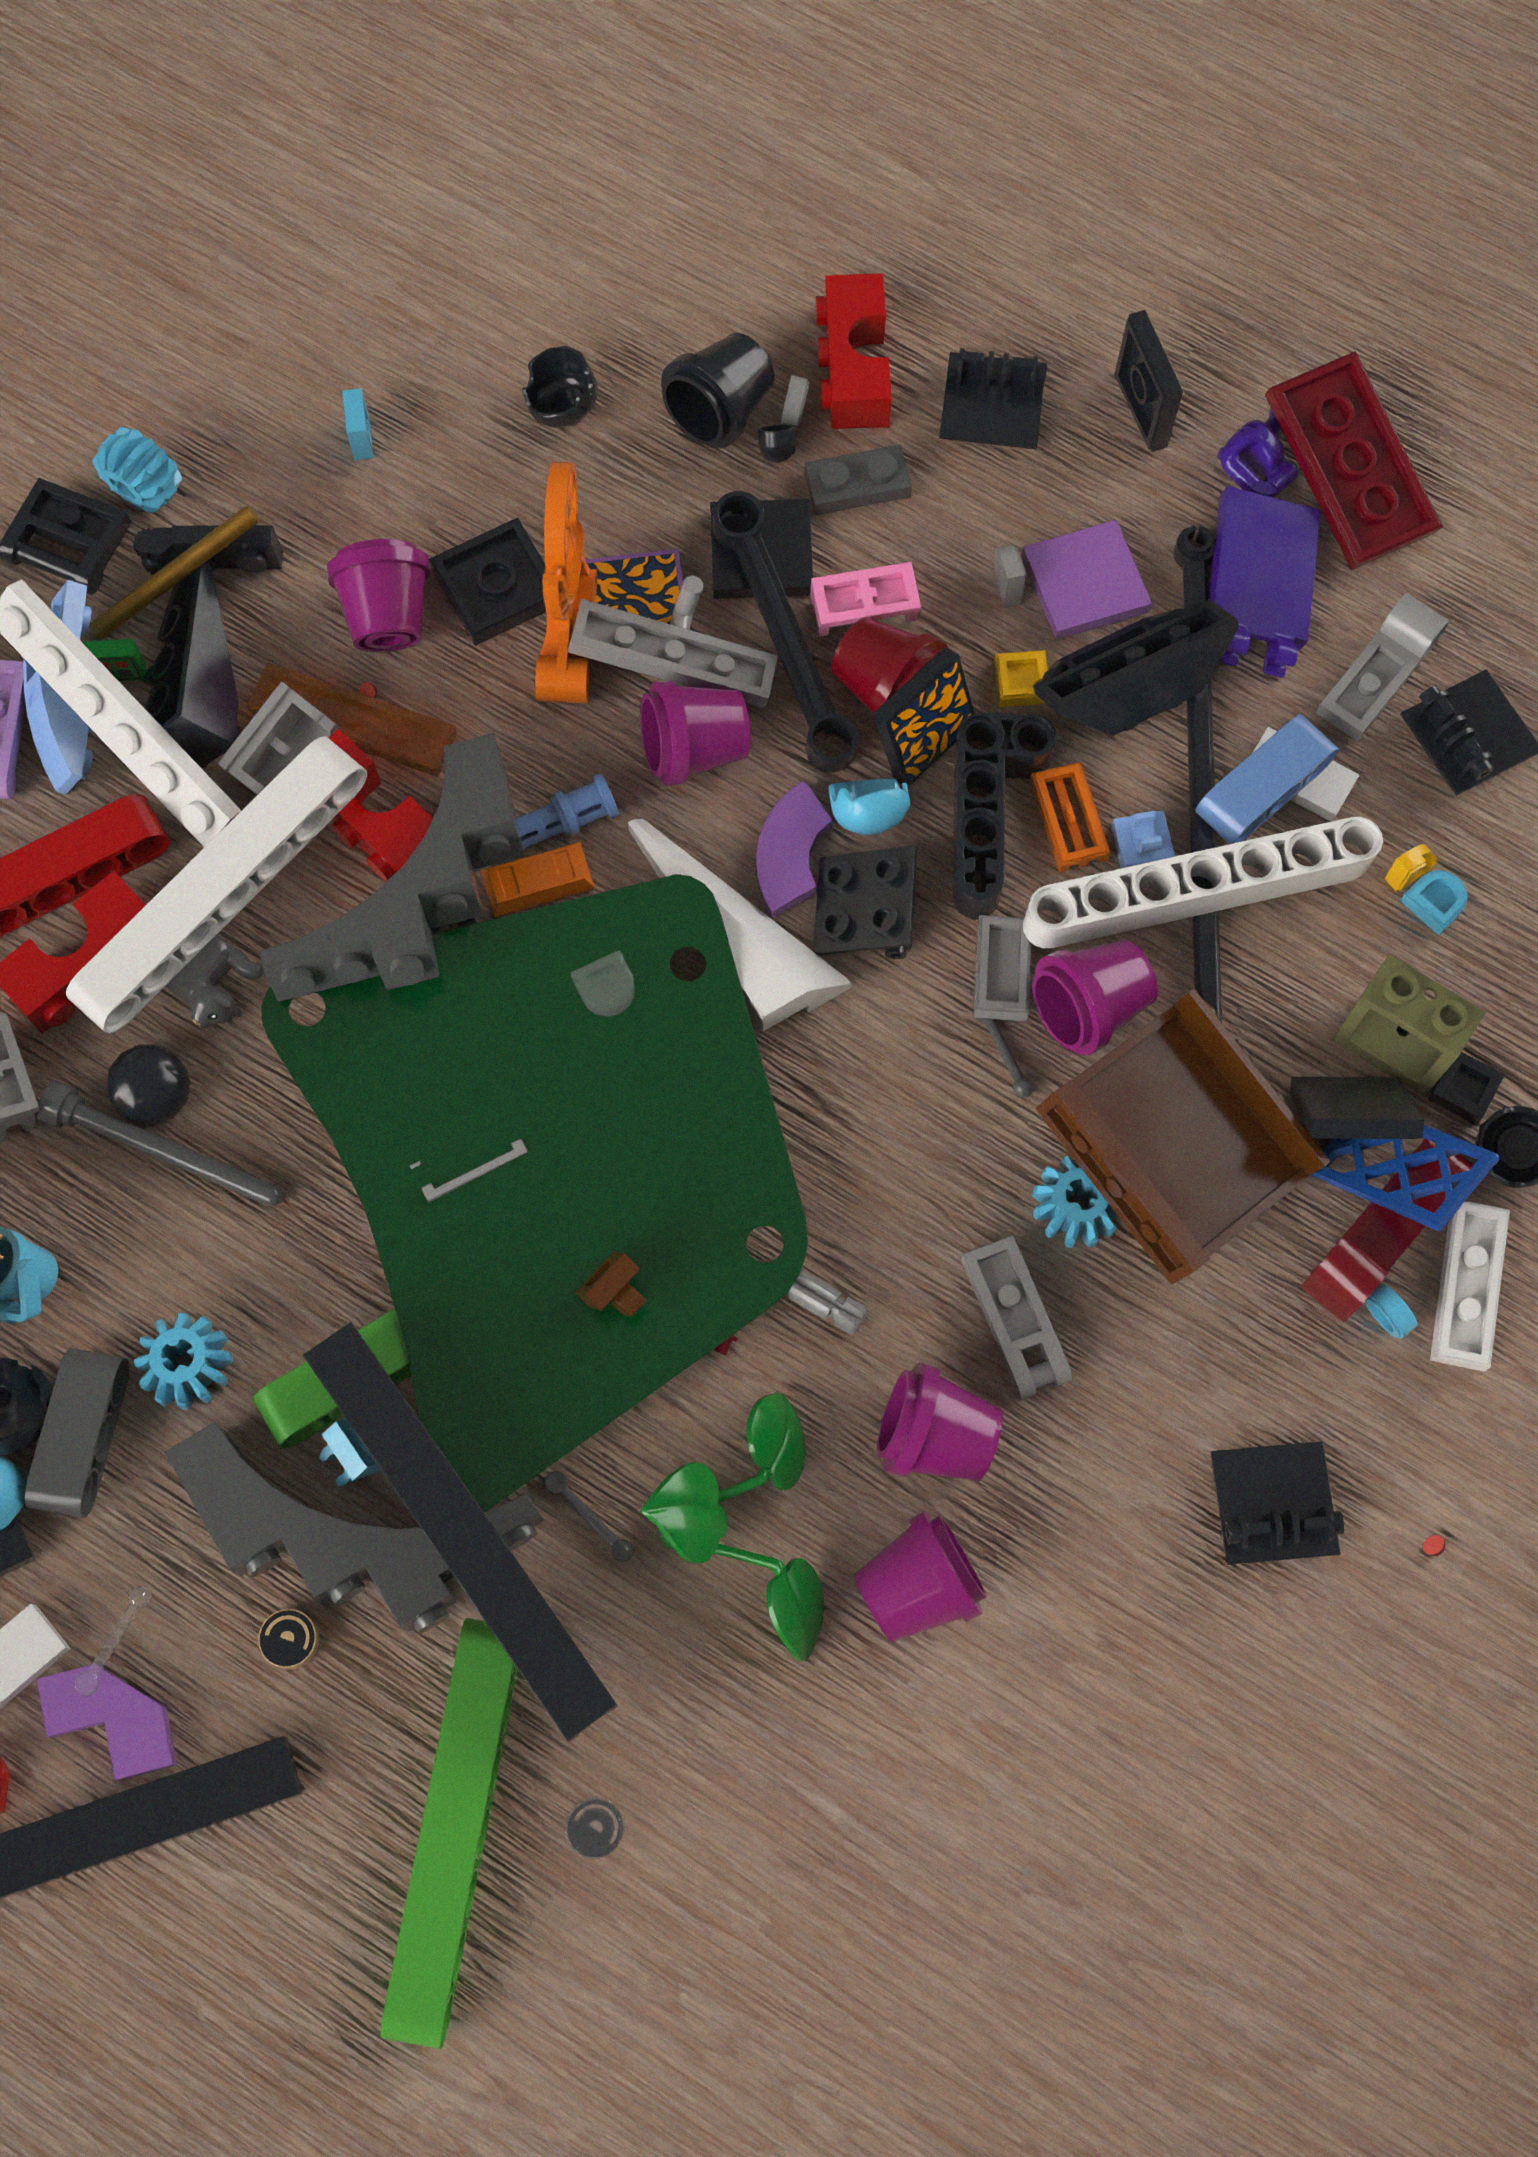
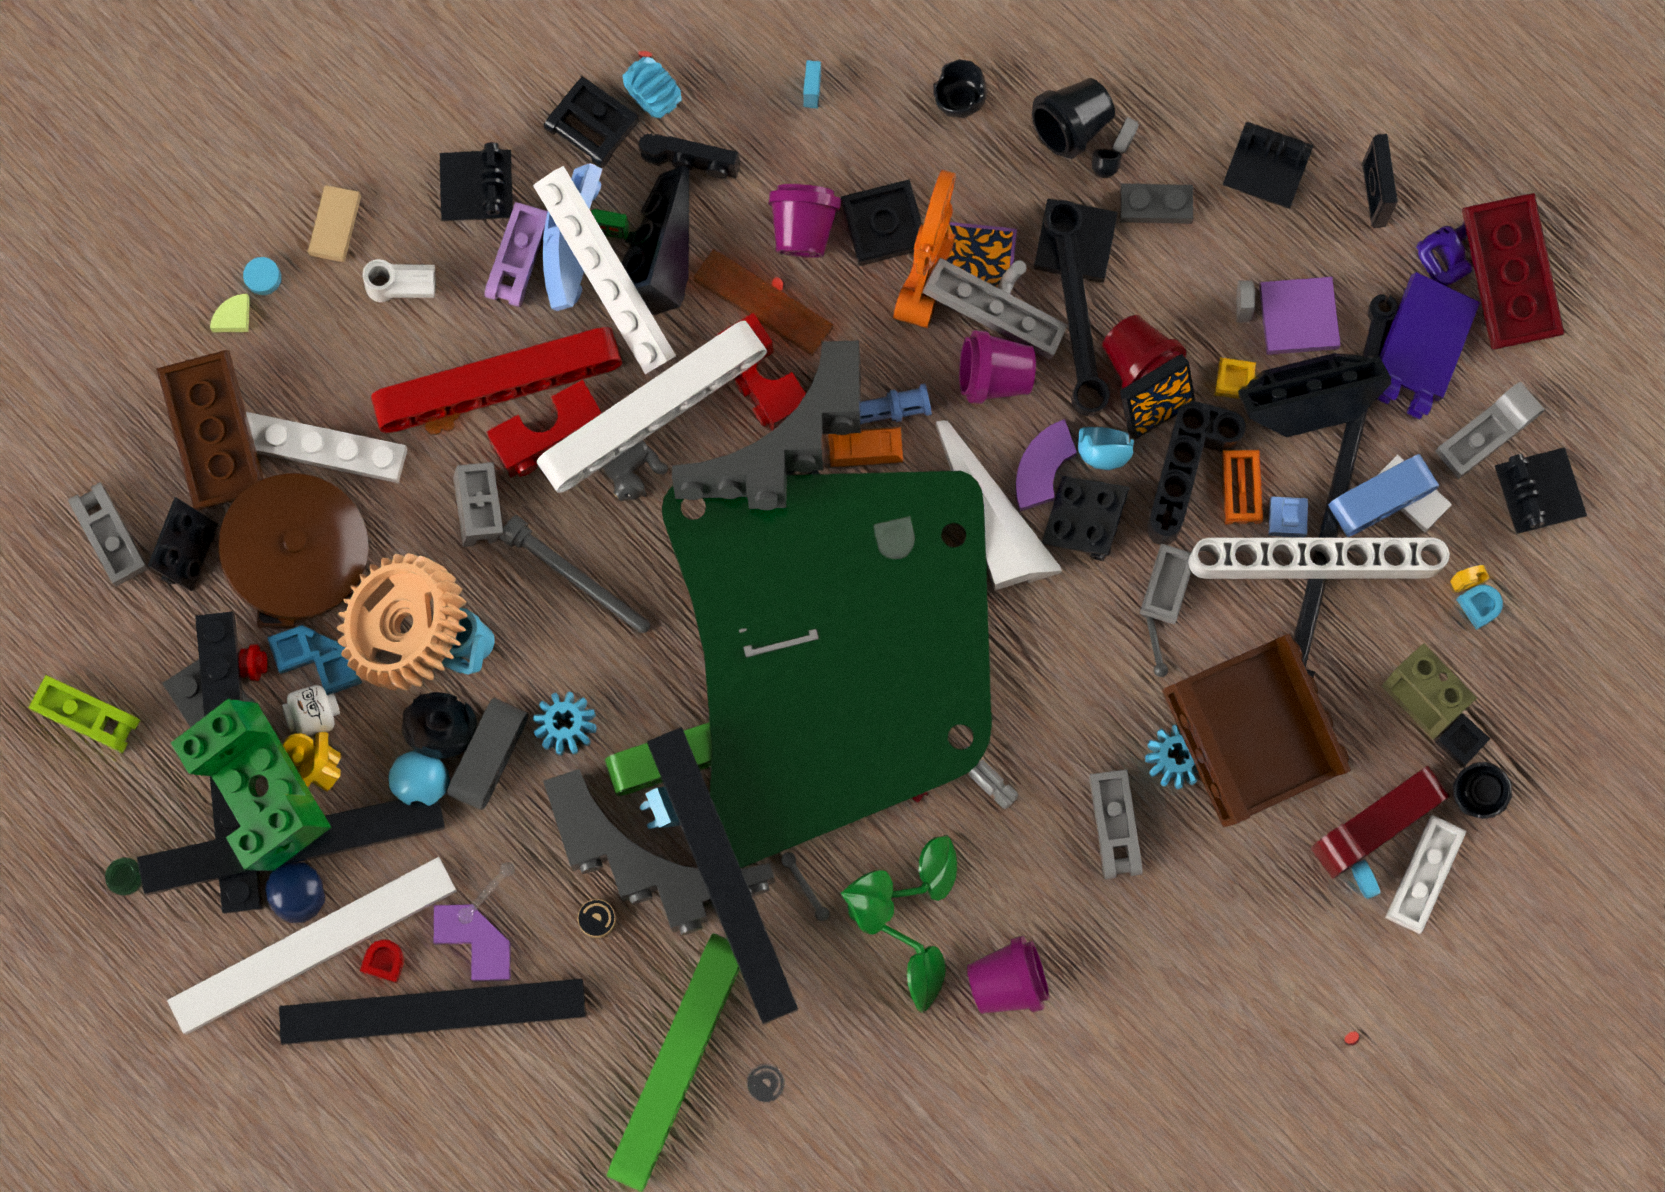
camera: 15 degrees right, 5 degrees up
(148, 1084) = (575, 531): black hair -> none
(174, 572) = (663, 170): pearl gold bar -> none
(275, 738) = (710, 312): light grey hinge -> none
(611, 1285) = (853, 741): reddish brown tile -> none
(856, 384) = (1182, 78): red arch -> none
(863, 594) = (1138, 297): bright pink hinge -> none
(937, 1428) = (1044, 884): magenta piece -> none
(1092, 993) = (1223, 617): magenta piece -> none
(1276, 1503) = (1254, 985): black hinge -> none
(1356, 1108) = (1379, 738): black tile -> none
(1456, 1186) = (1426, 808): blue window -> none

